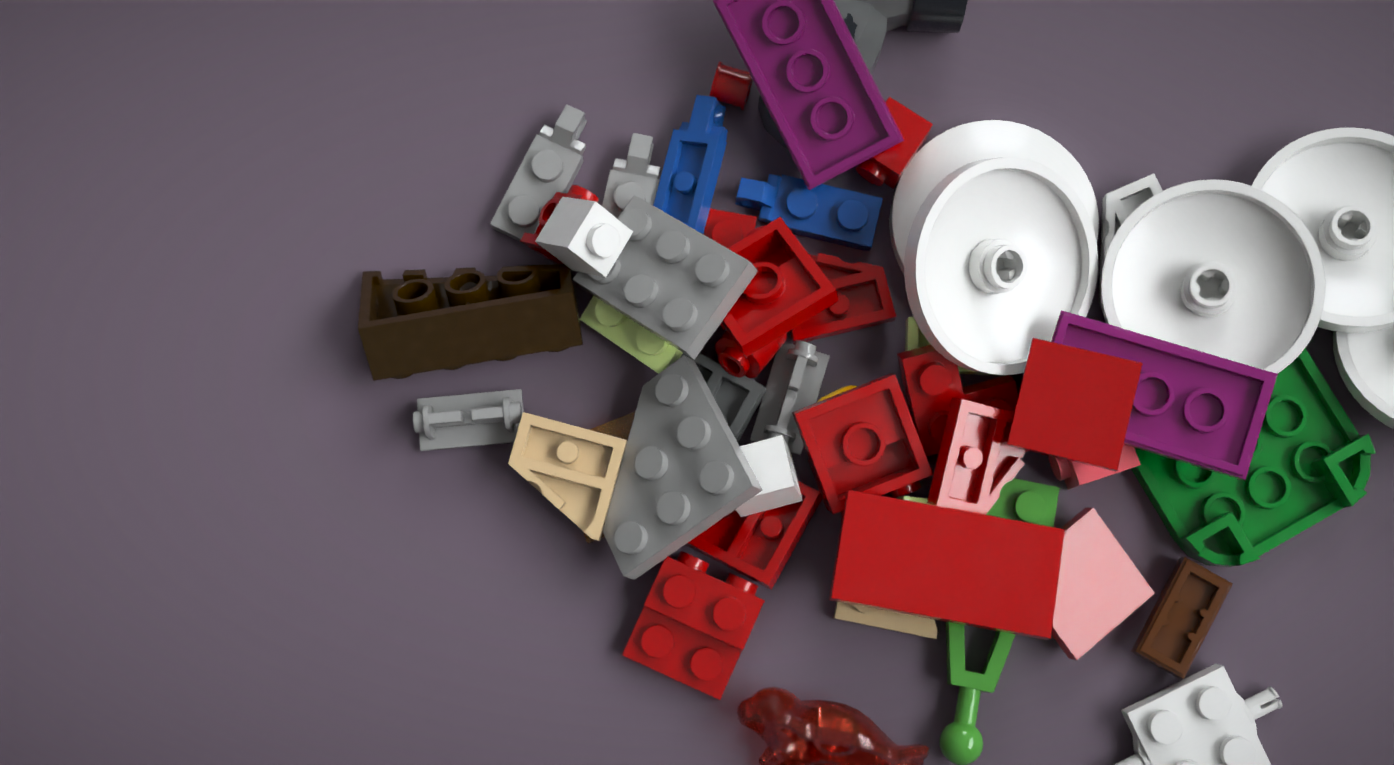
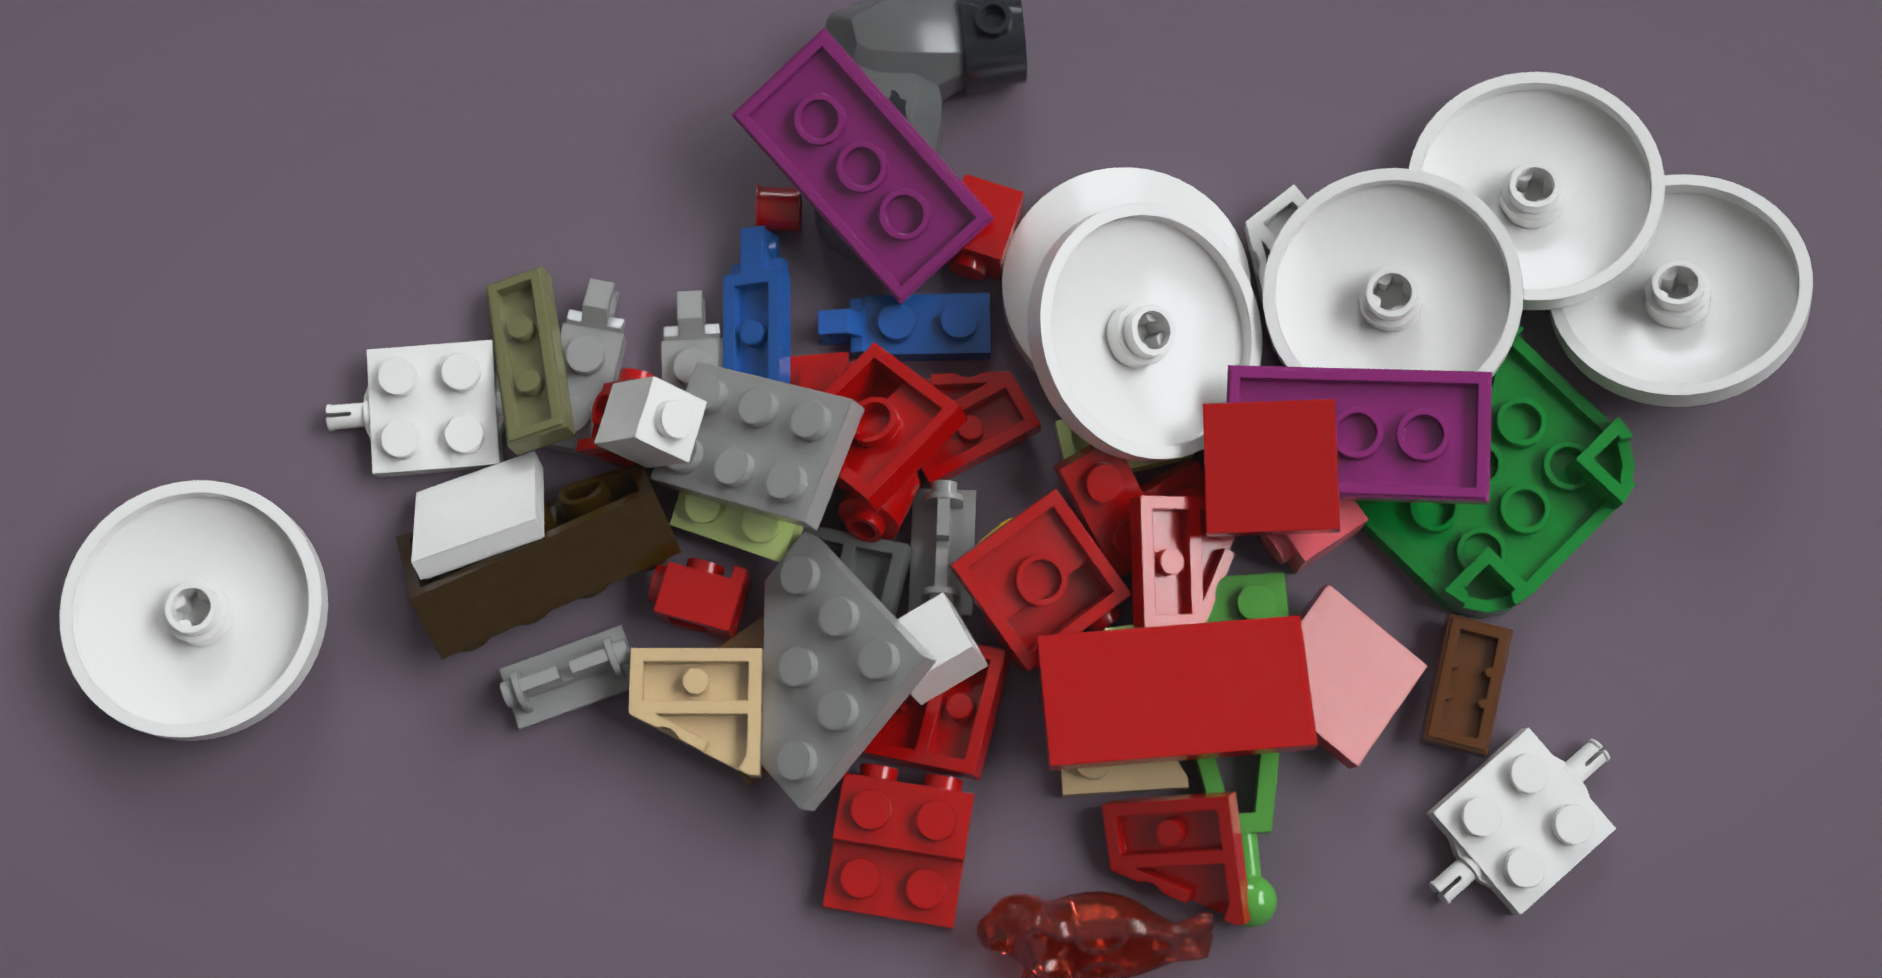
camera: 15 degrees left, 5 degrees down
(189, 290) = (193, 610): none -> white dish
(418, 177) = (429, 409): none -> white plate
(430, 274) = (478, 515): none -> white tile
(502, 159) = (530, 361): none -> olive tile
(588, 383) = (700, 597): none -> red brick
(919, 686) = (1183, 847): none -> red wing

